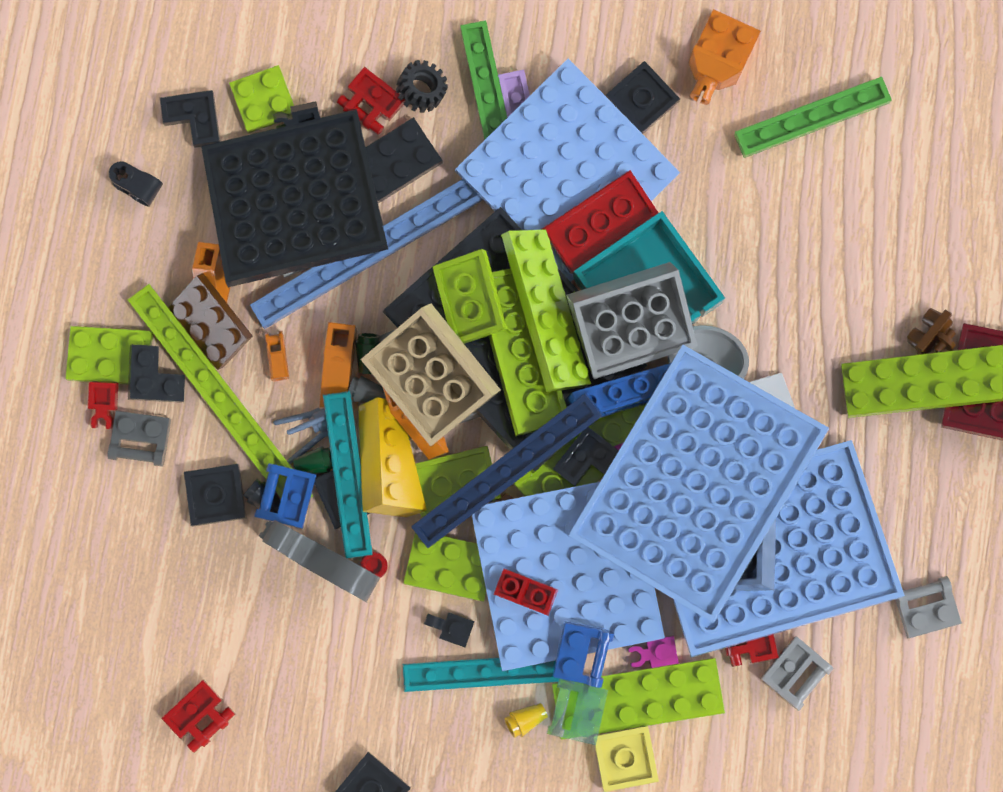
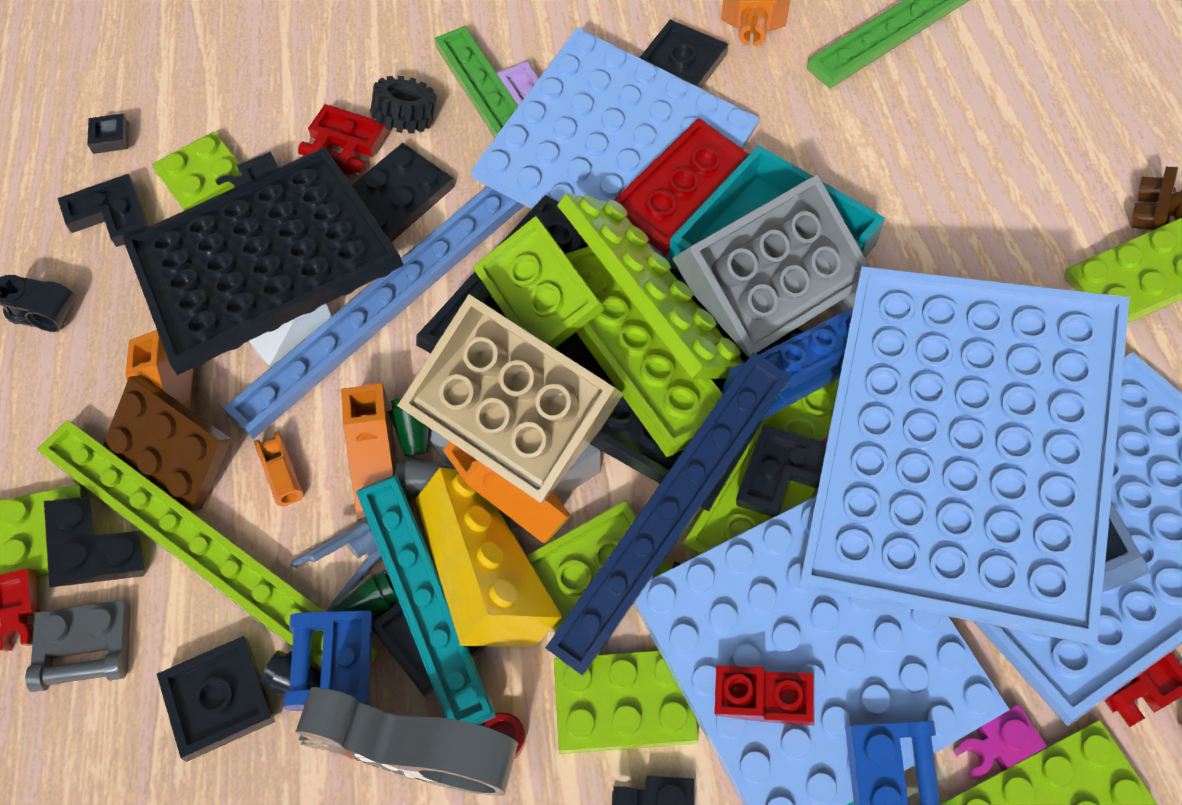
camera: 10 degrees left, 20 degrees down
(201, 44) = (108, 133): none -> black plate

